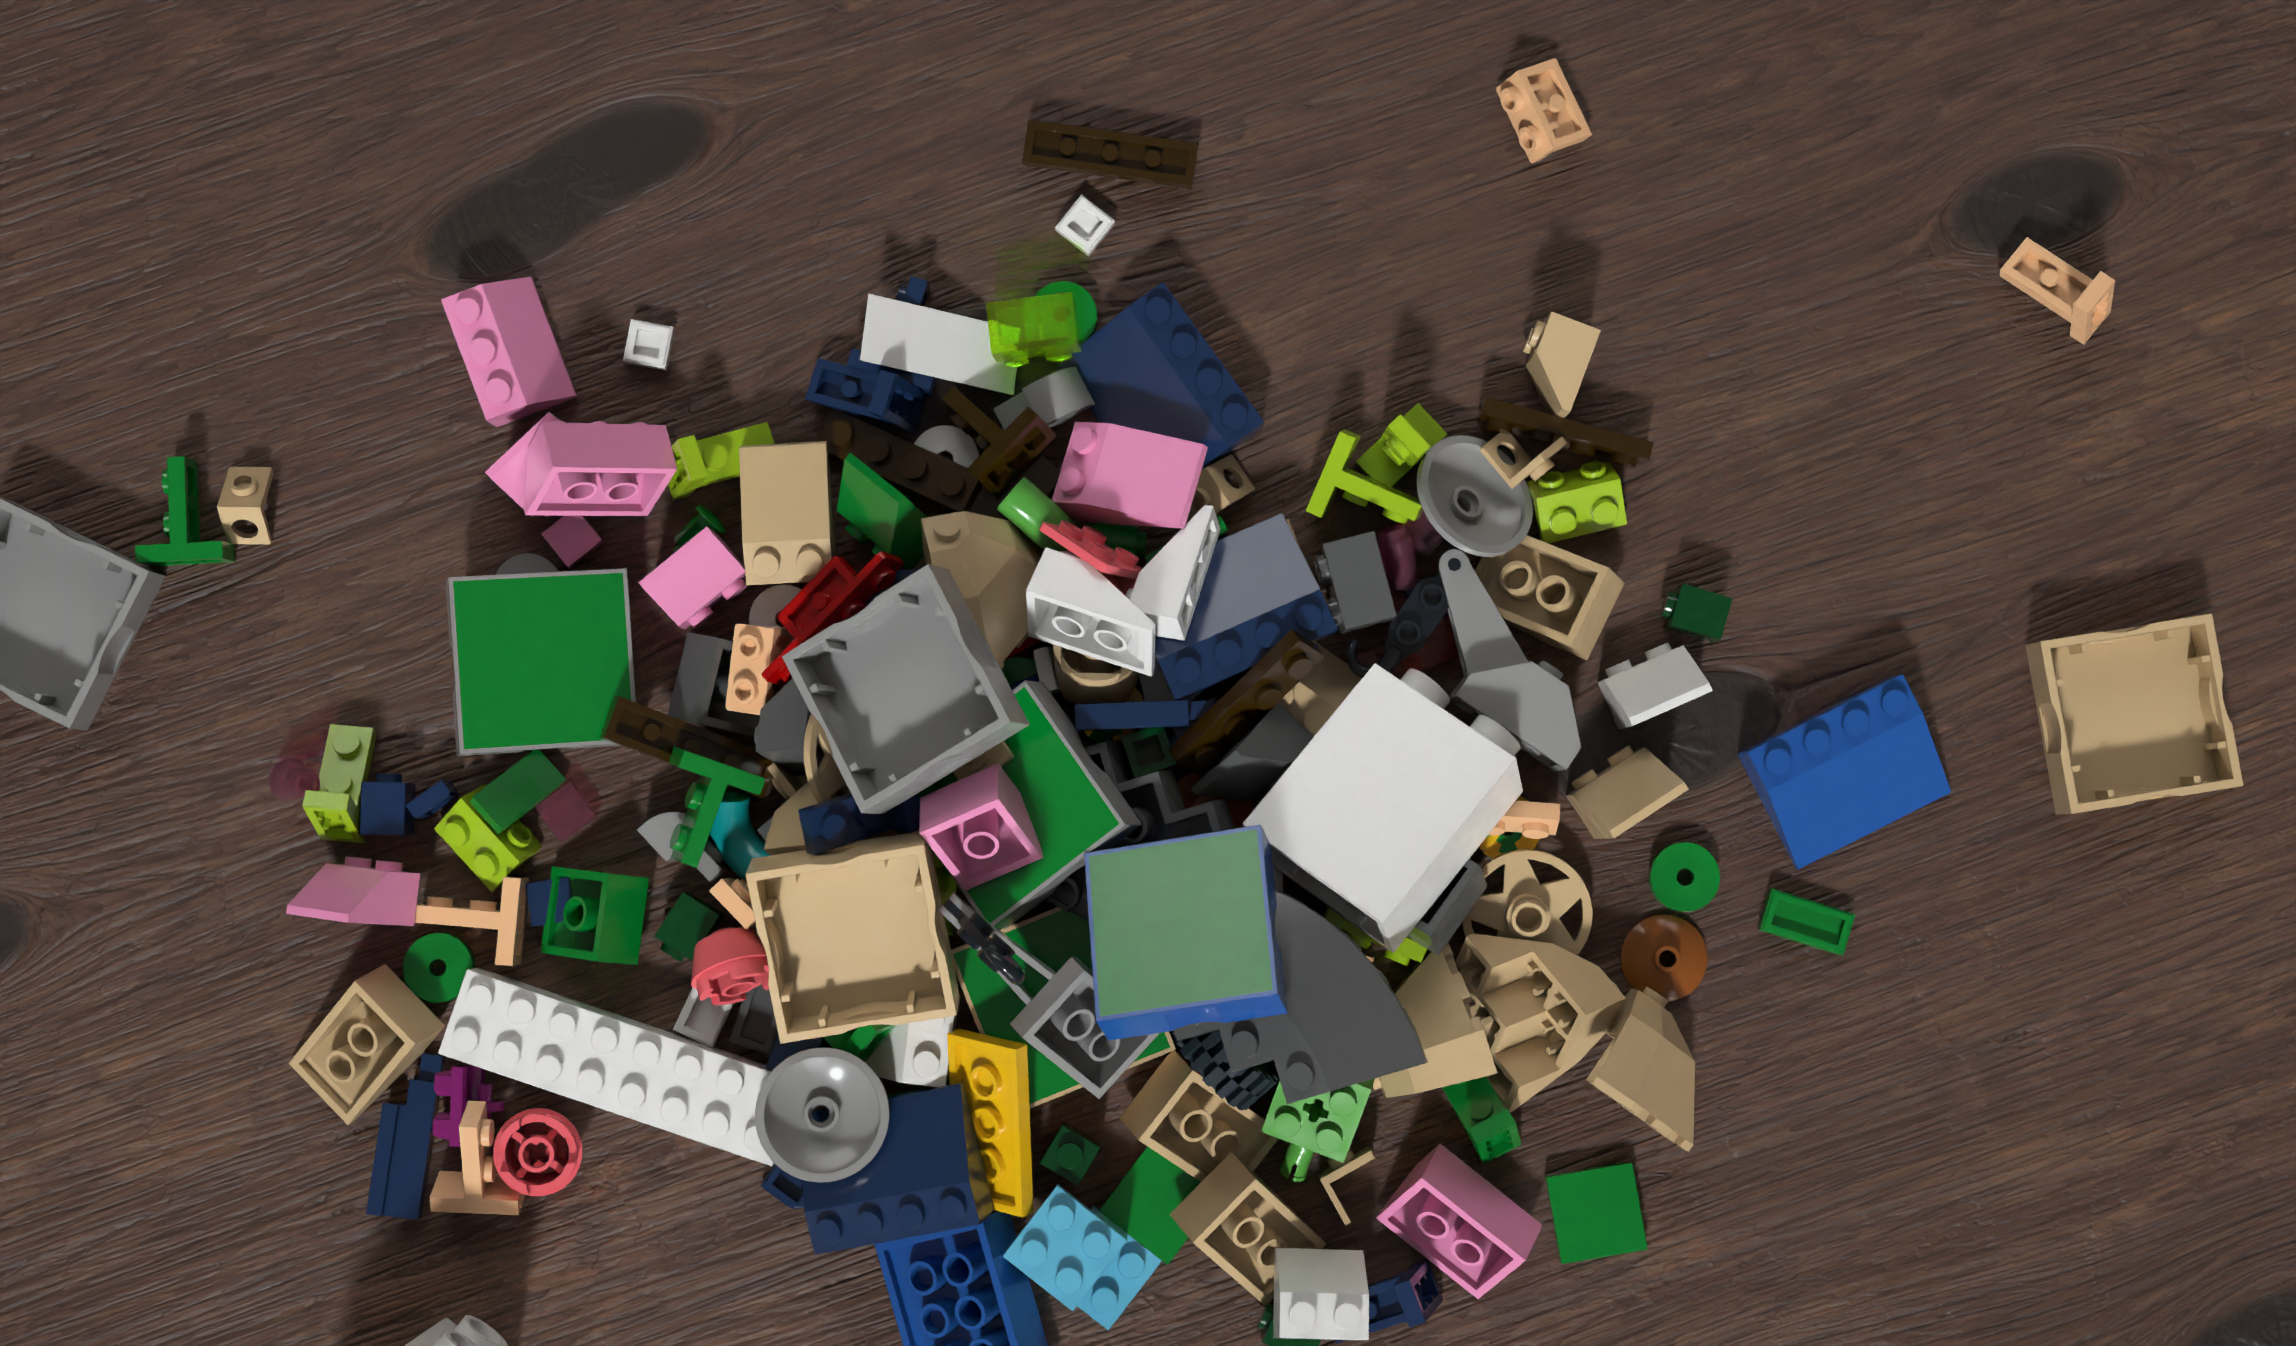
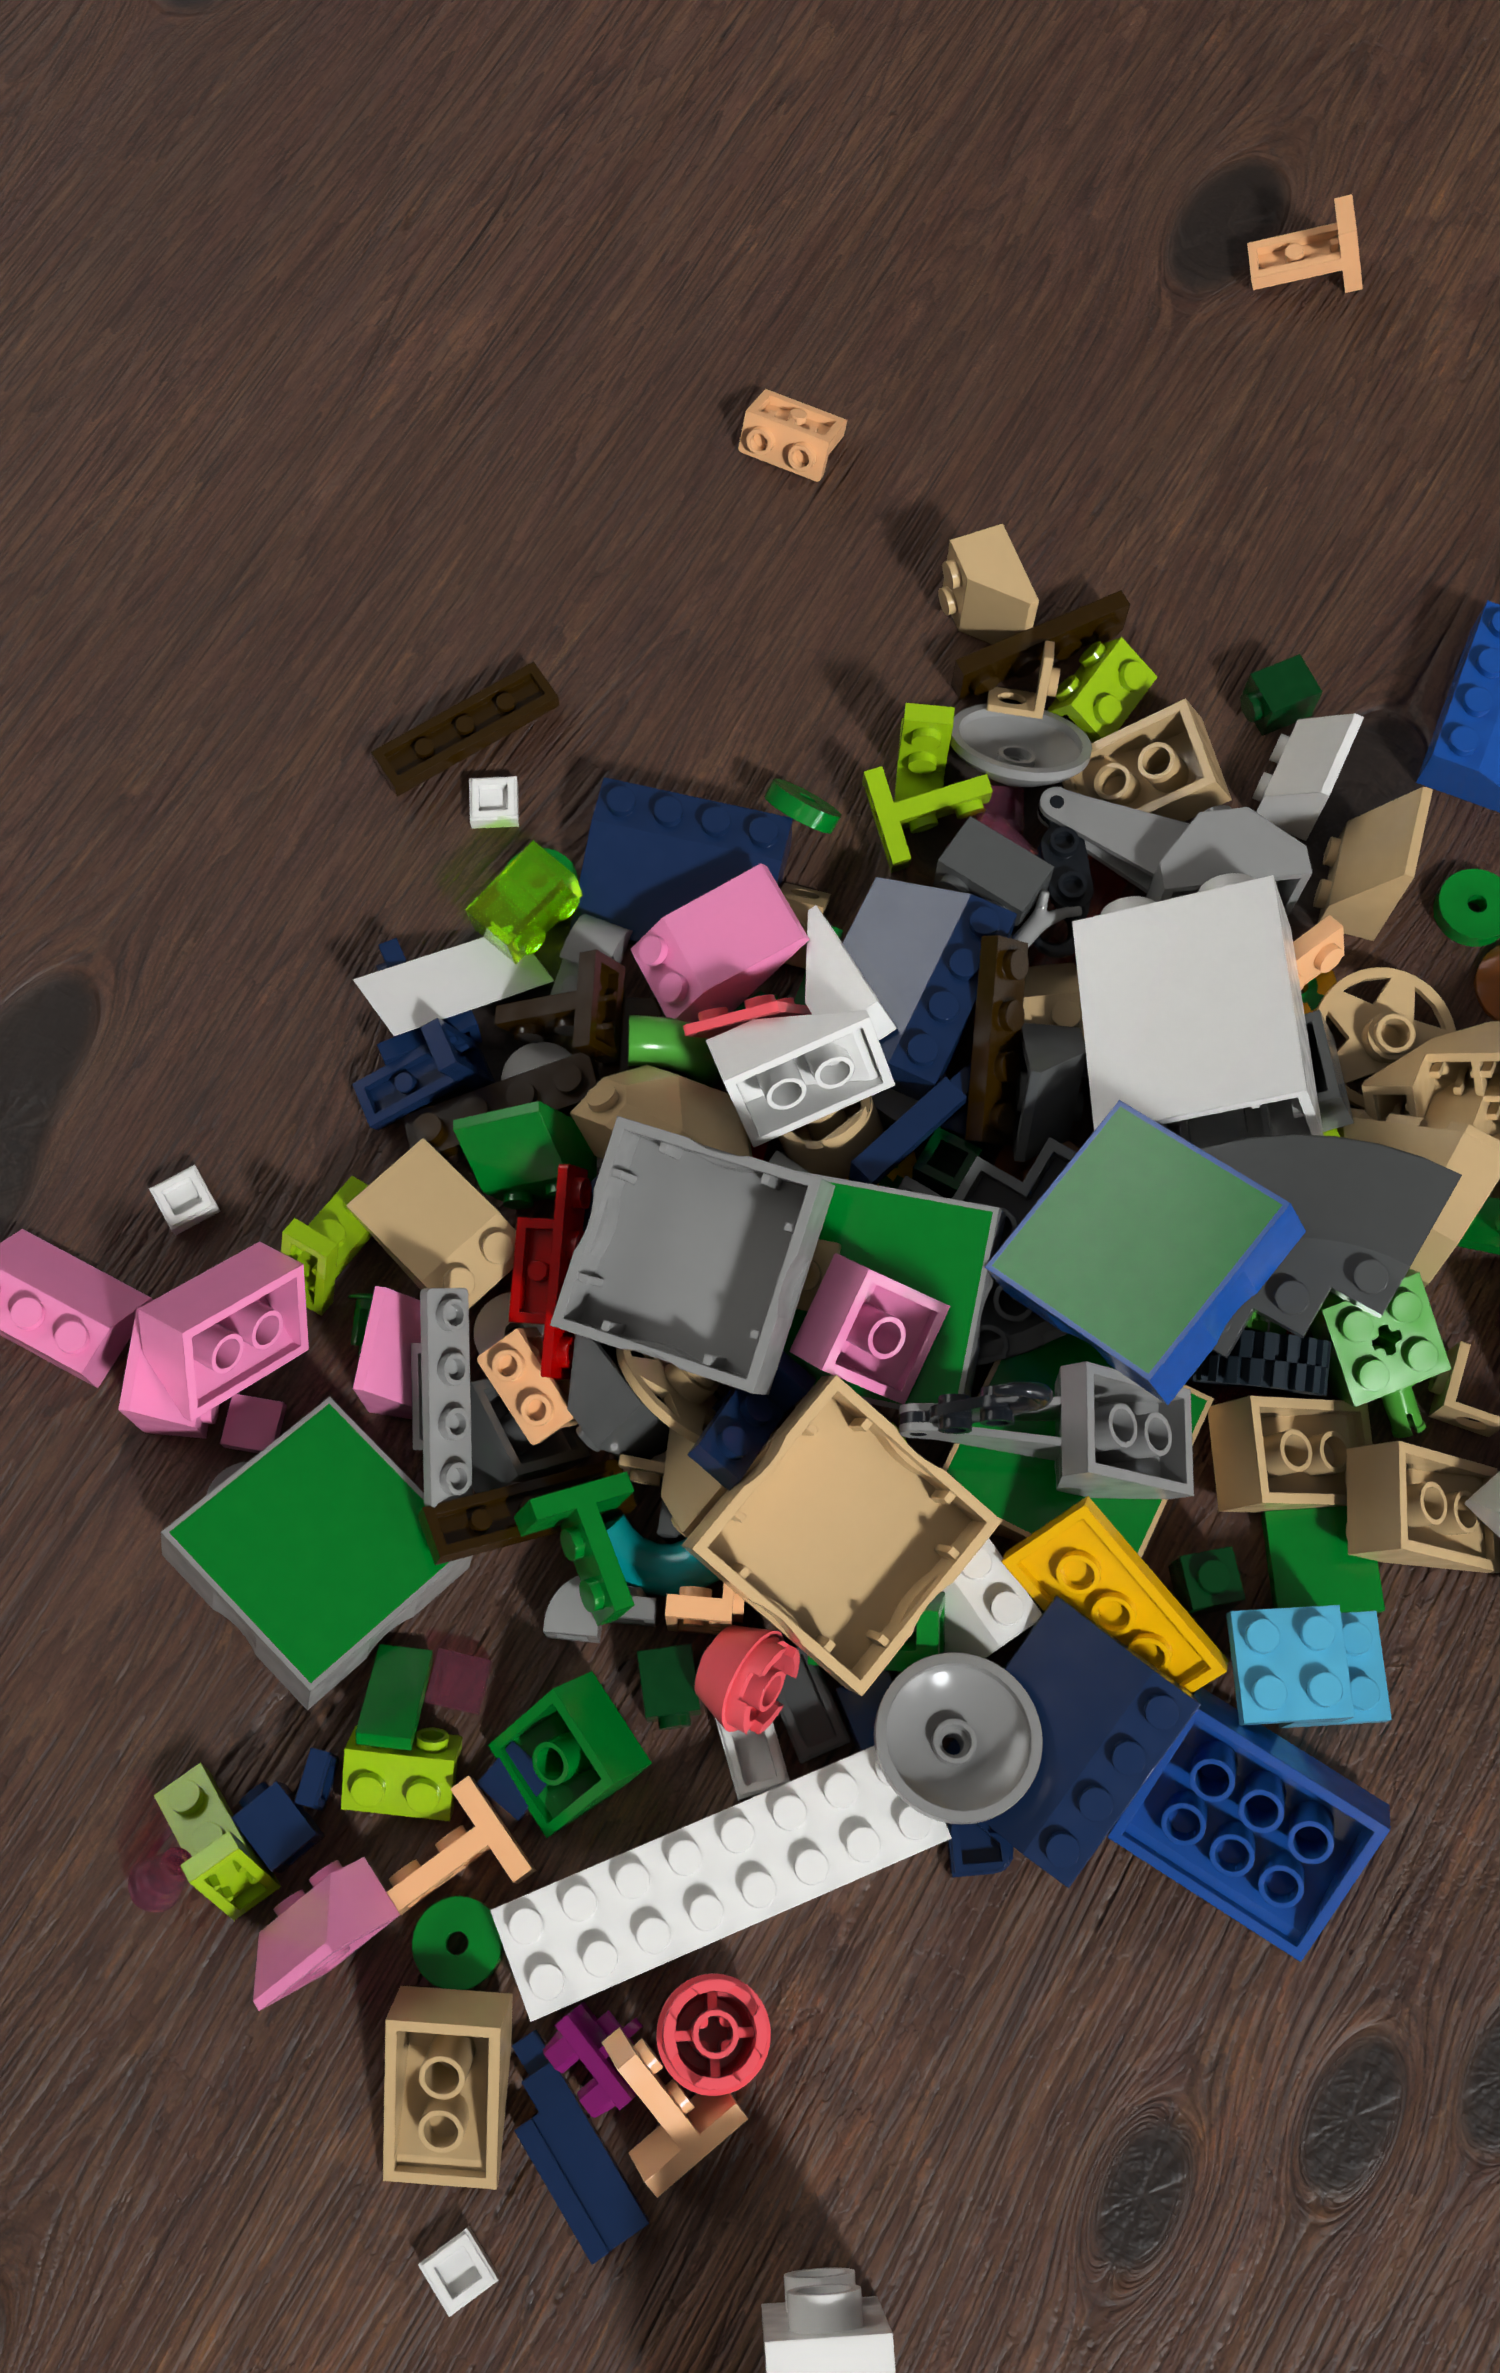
camera: 40 degrees left, 15 degrees down
(291, 1150) = (459, 2271): none -> white tile
(690, 635) = (443, 1394): none -> light grey bracket
(1284, 414) = (802, 806): none -> green piece
(1361, 639) = (1043, 919): none -> light grey bar

